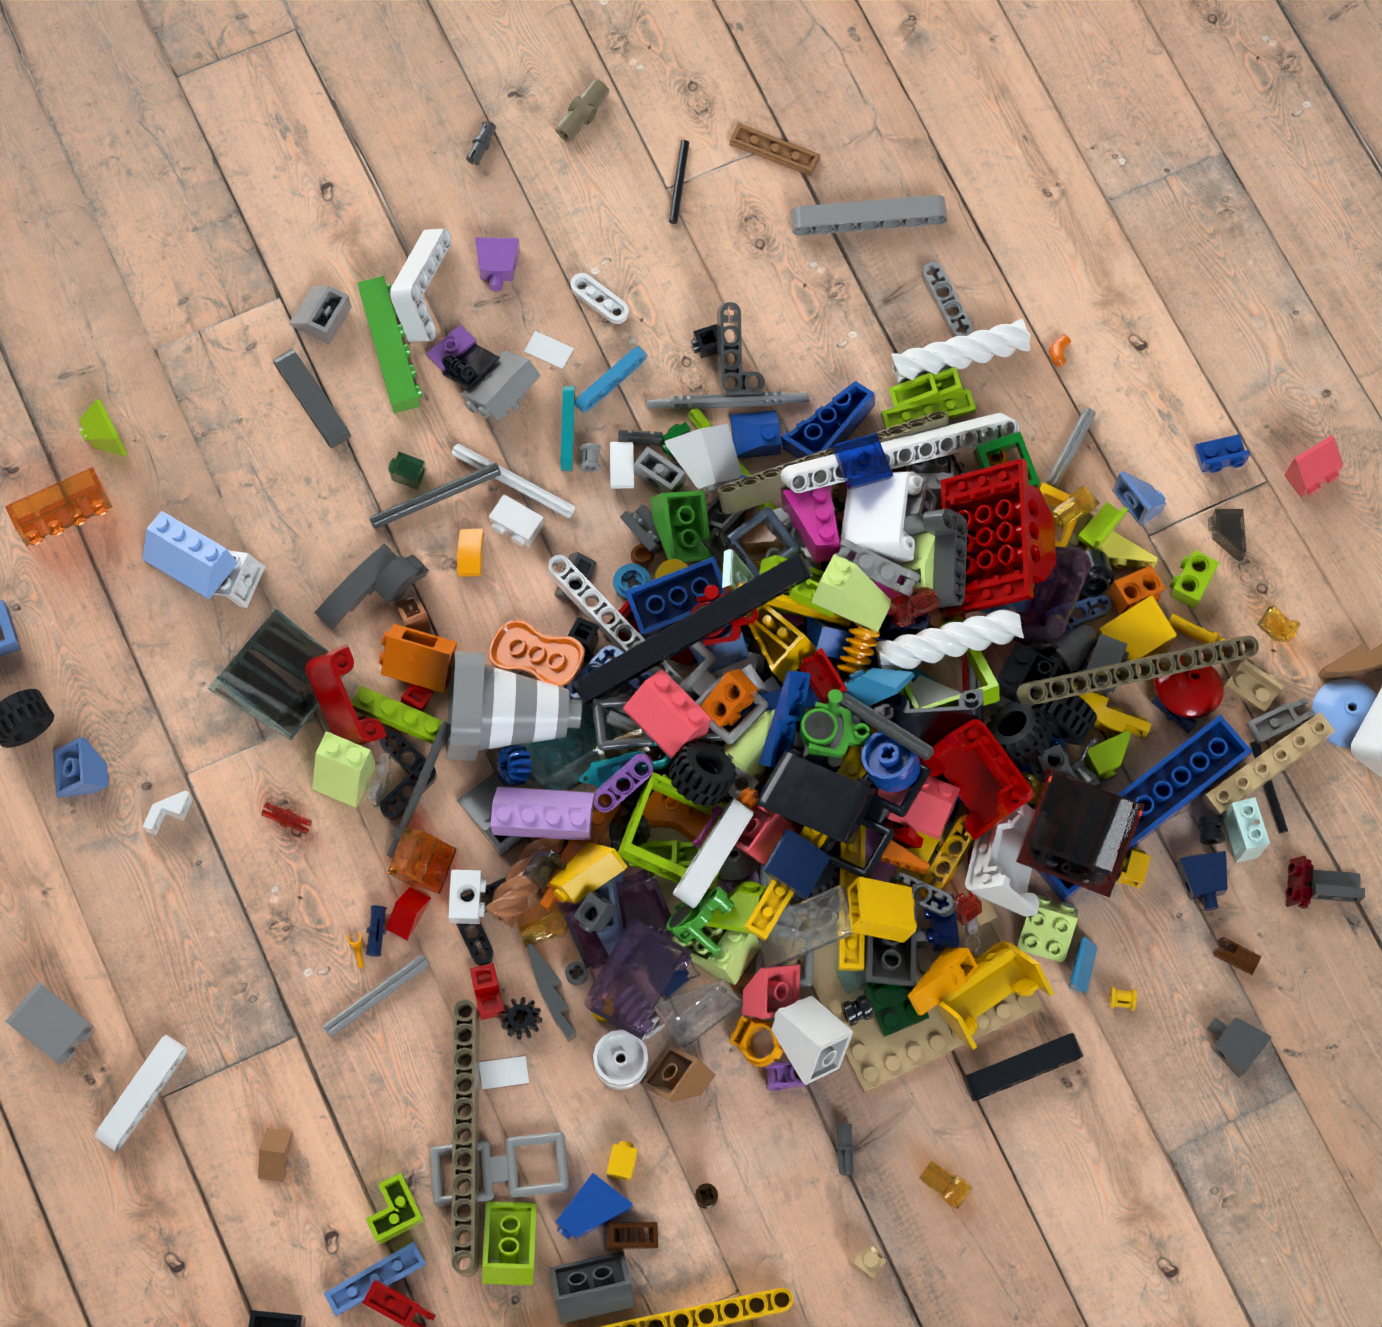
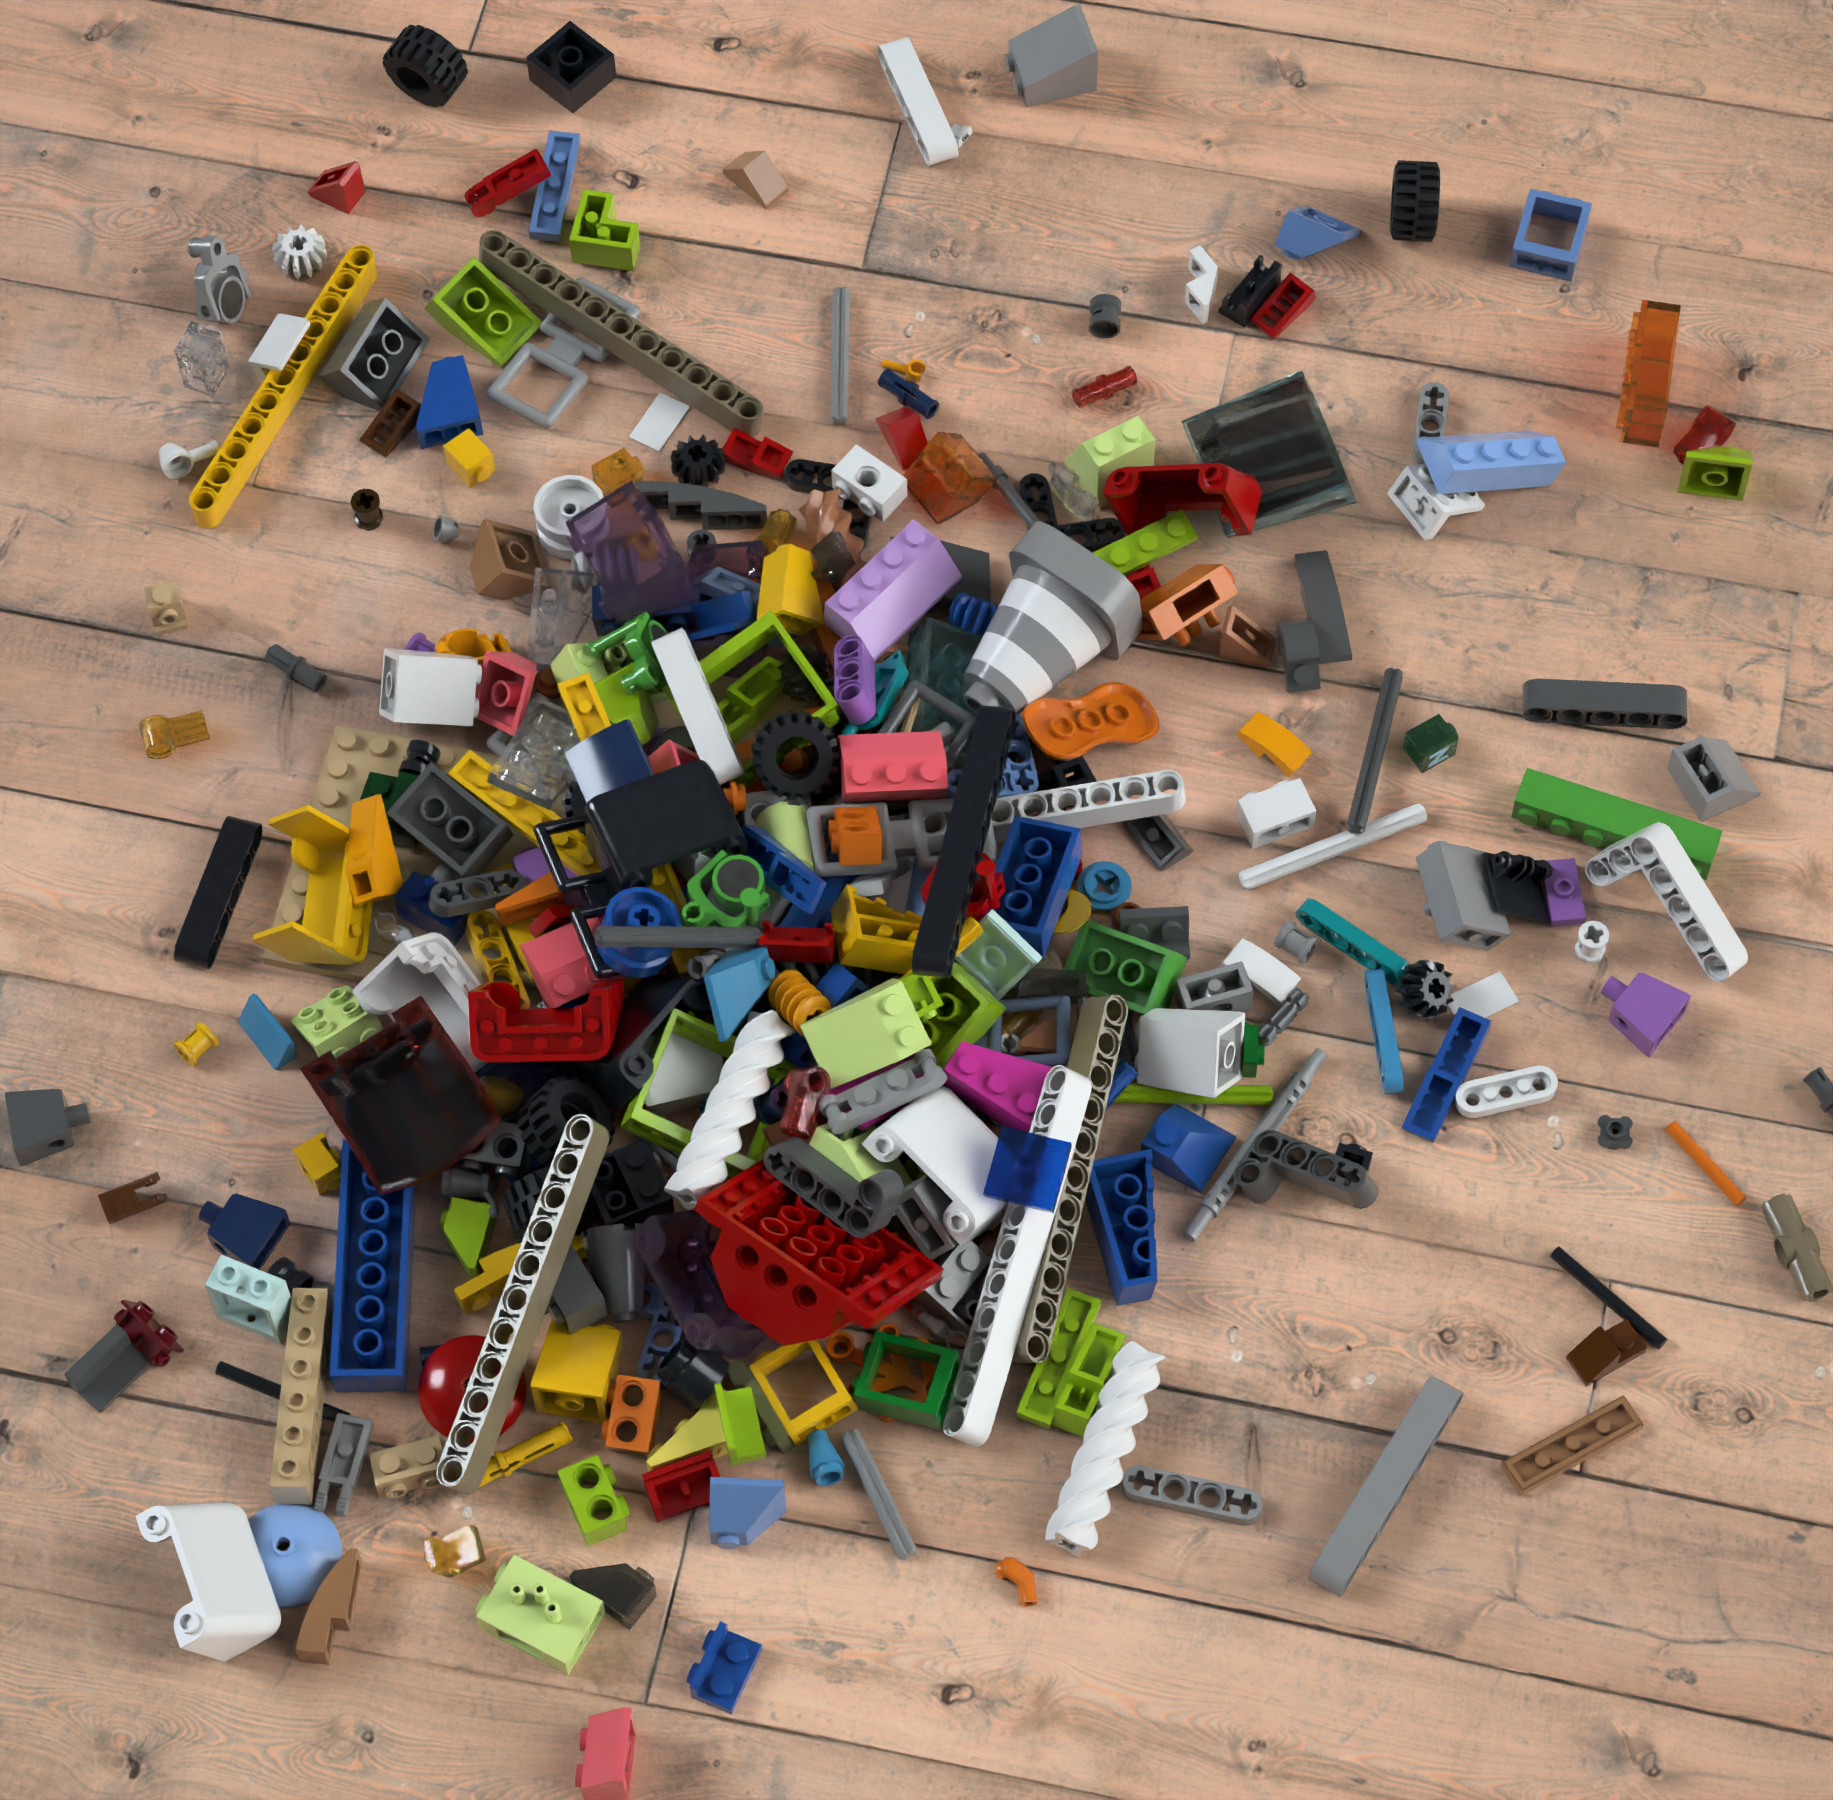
camera: 130 degrees right, 10 degrees down
(73, 457) = (1707, 431): none -> clear red piece
(146, 1050) = (961, 133): none -> white piece
(150, 747) = (1289, 284): none -> red slope
(151, 780) = (1251, 292): none -> black hinge
(176, 624) = (1424, 414): none -> light grey beam
(233, 853) = (1104, 318): none -> dark grey wheel
(477, 306) = (1591, 942): none -> white bush
(563, 186) = (1705, 1163): none -> orange bar
(566, 1059) = (616, 471): none -> clear yellow brick
(571, 370) = (1425, 989): none -> black gear
(581, 239) = (1614, 1141): none -> dark grey plate
(604, 908) = (736, 566): dark grey brick -> none
(605, 336) = (1446, 1074): none -> blue slope
(634, 897) = (723, 614): none -> blue panel
(682, 1138) = (445, 529): none -> light grey hinge
(712, 164) = (1605, 1351): none -> reddish brown slope
(717, 811) = (744, 753): magenta hinge -> none
(881, 909) = (487, 819): yellow brick -> none
(967, 909) = (420, 924): clear red tile -> none
(1078, 479) = (824, 1461): none -> dark azure cone
(1078, 504) = (788, 1415): clear yellow piece -> none
(1149, 541) = (680, 1485): none -> red hinge
(1273, 559) = (539, 1614): none -> yellowish green piece

